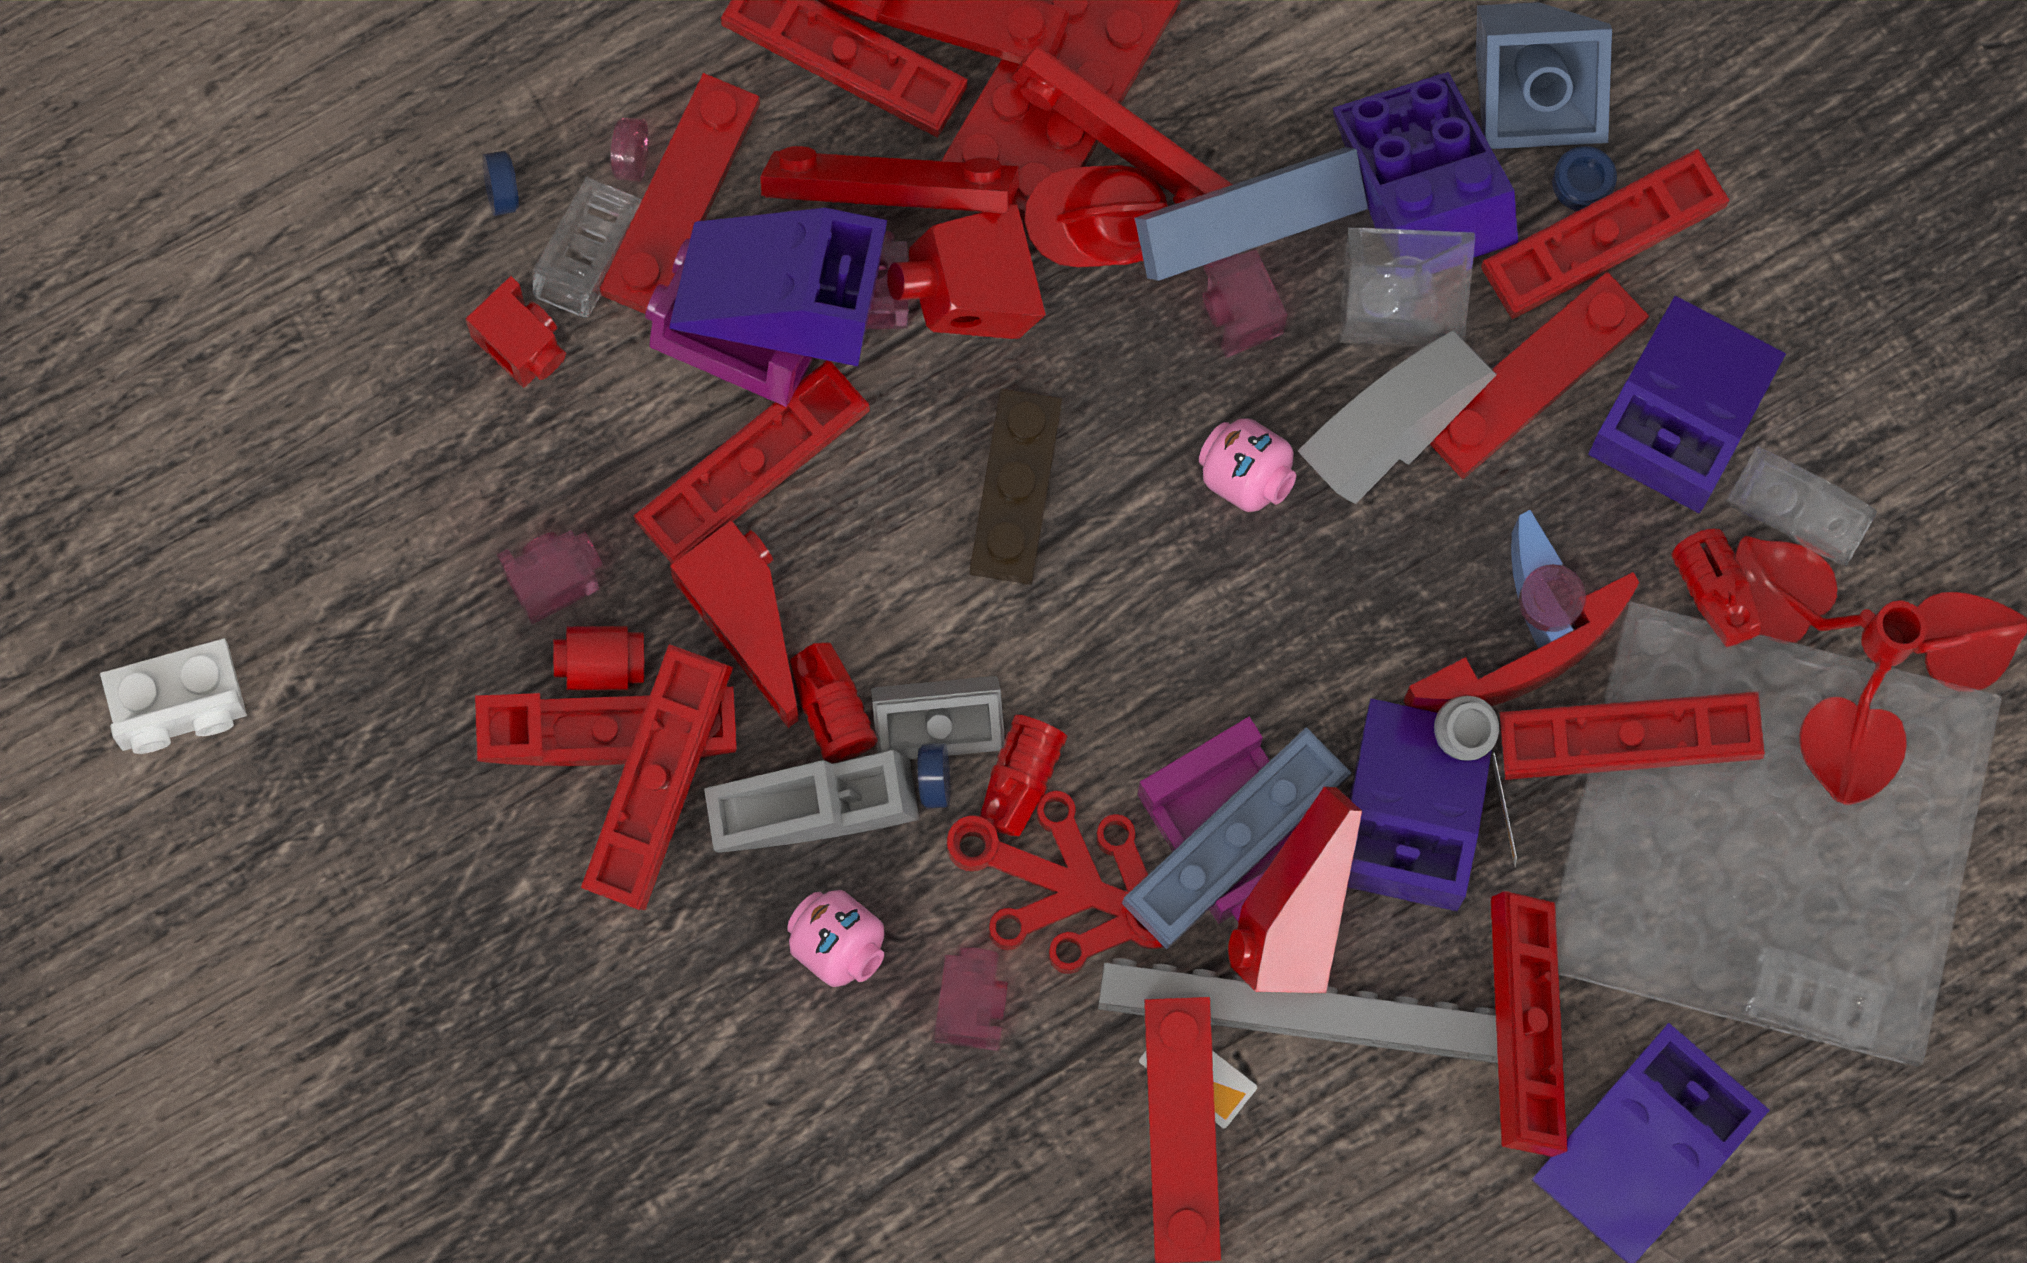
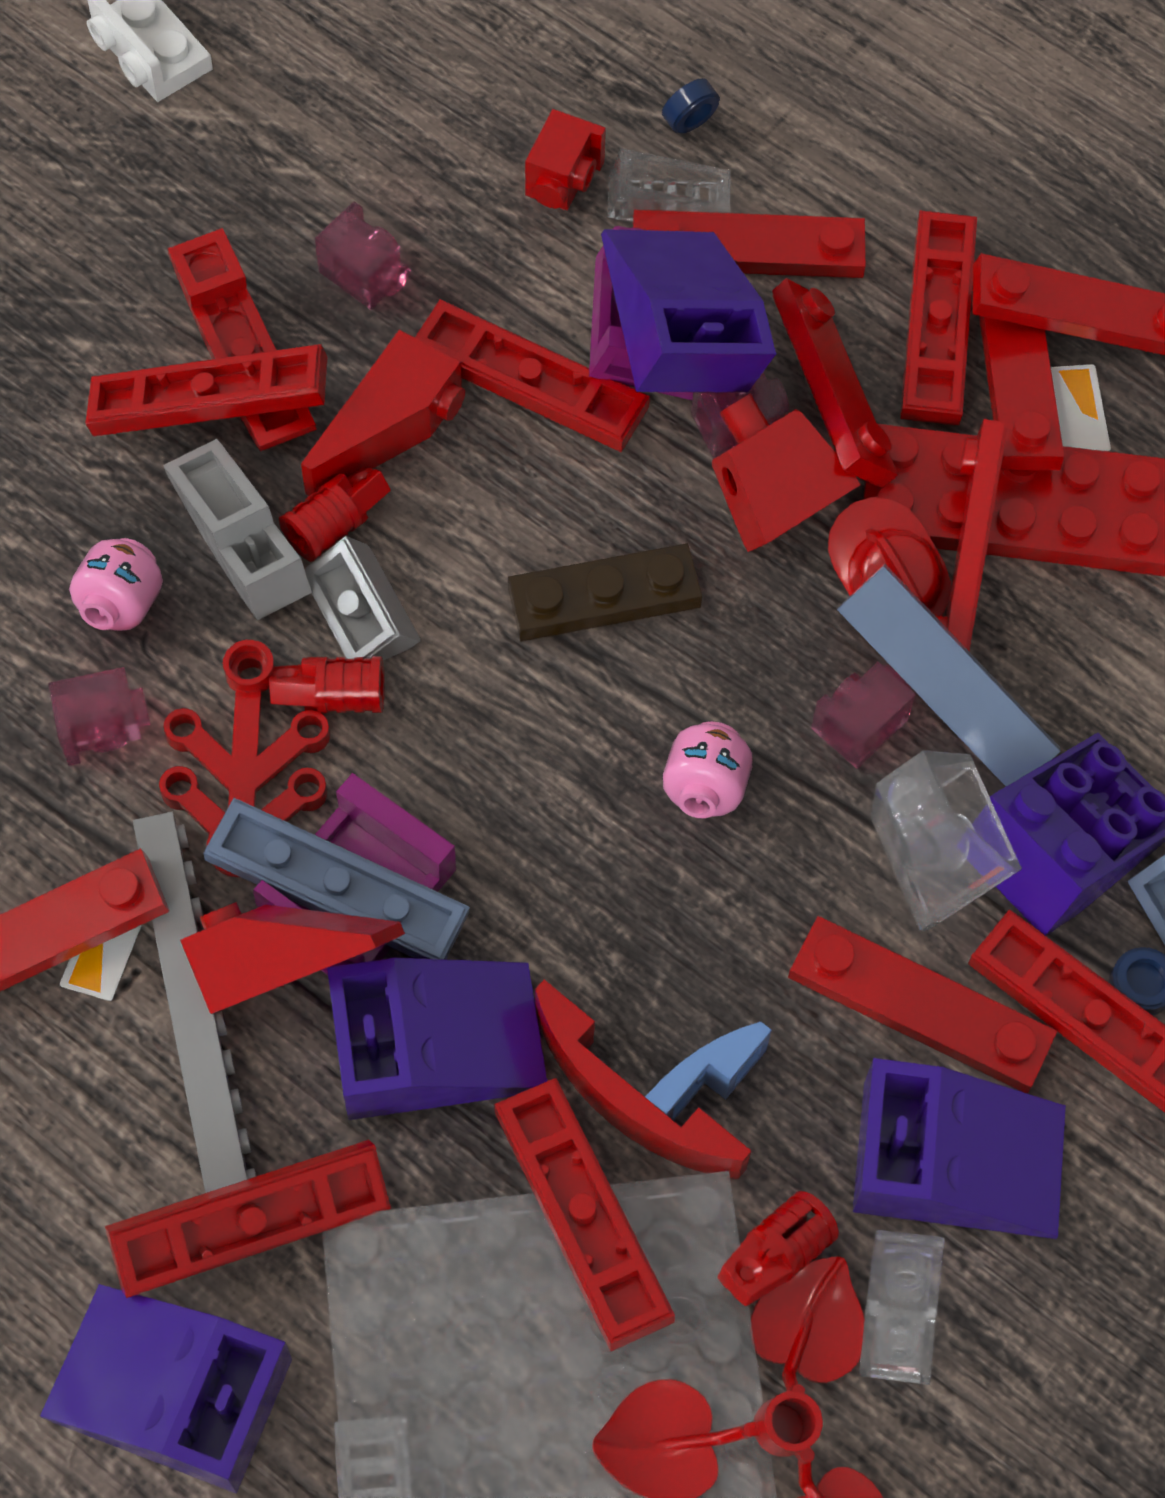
camera: 70 degrees right, 10 degrees down
(599, 657) = (302, 314): red brick -> none
(629, 149) = (768, 187): clear pink tile -> none
(934, 775) = (299, 613): dark blue tile -> none
(1396, 416) = (812, 879): light grey slope -> none
(1466, 728) = (523, 1047): light grey plate -> none
(1504, 810) = (459, 1126): white sticker -> none
(1552, 598) = (687, 1078): clear pink tile -> none

